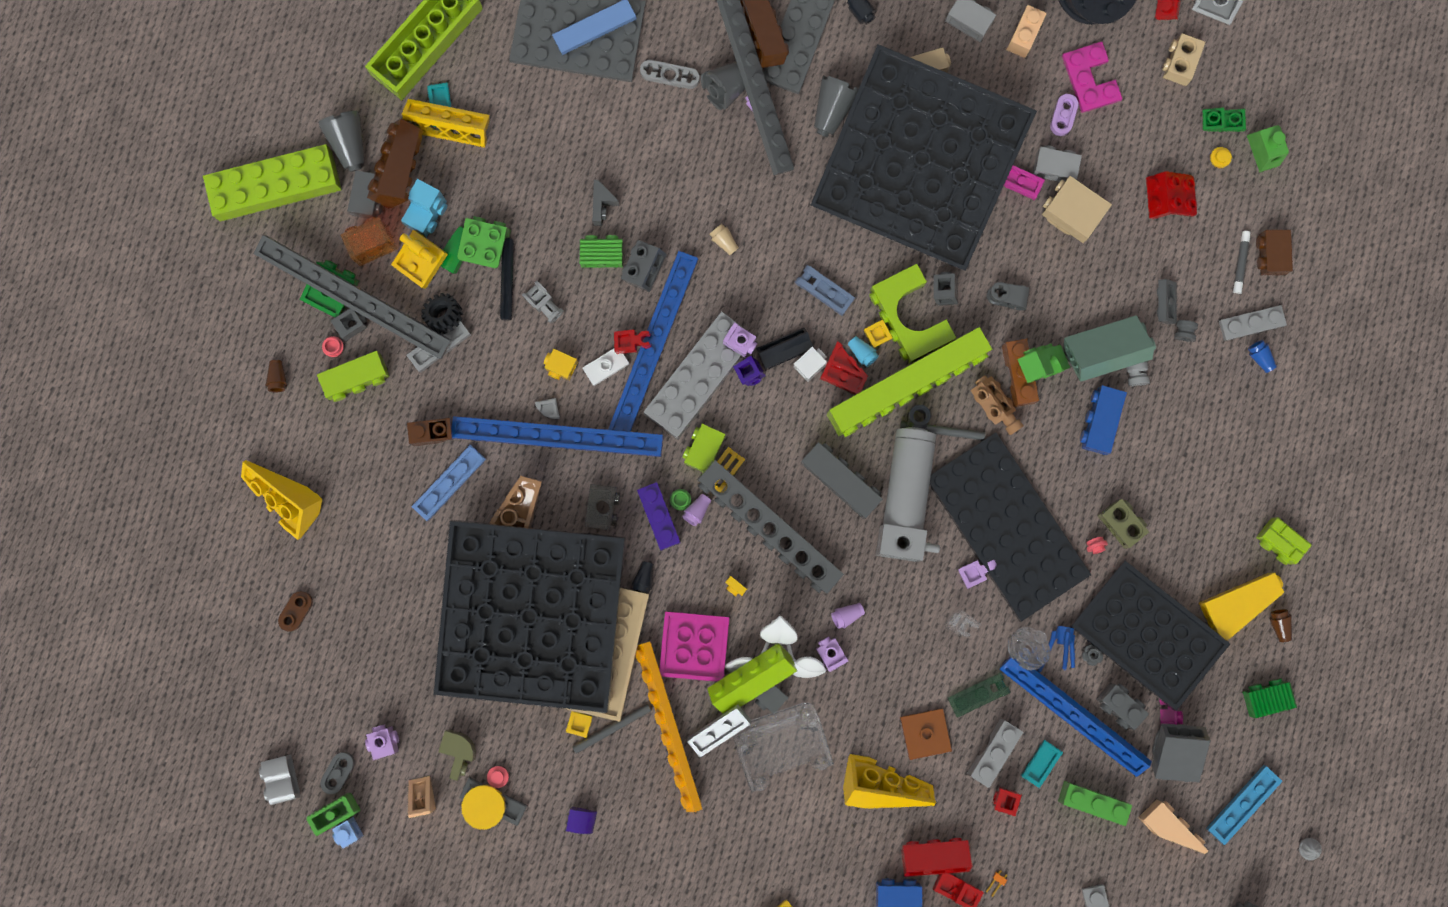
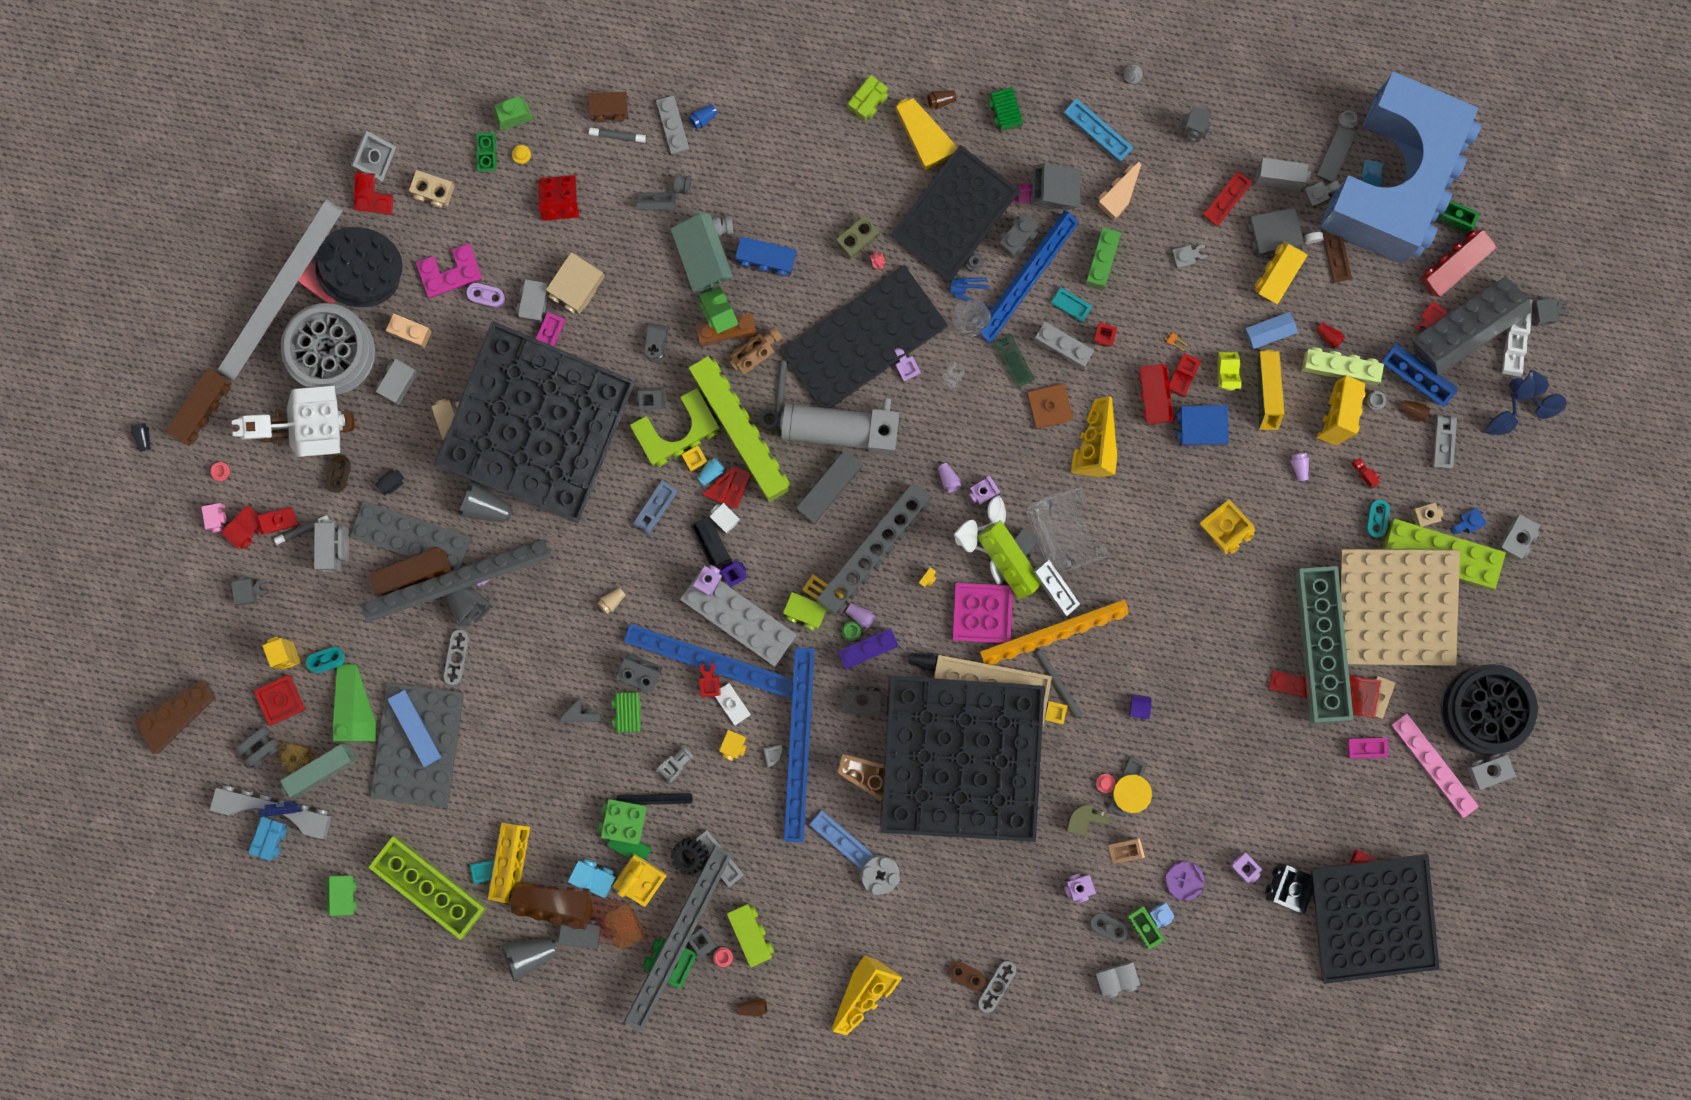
camera: 90 degrees left, 0 degrees up
(272, 183) = (571, 1022): lime brick -> none
(291, 658) = (985, 996): none -> light grey beam
(385, 861) = (1184, 880): none -> medium lavender tile
(399, 524) = (889, 880): none -> light grey plate
(429, 431) = (799, 860): reddish brown slope -> none

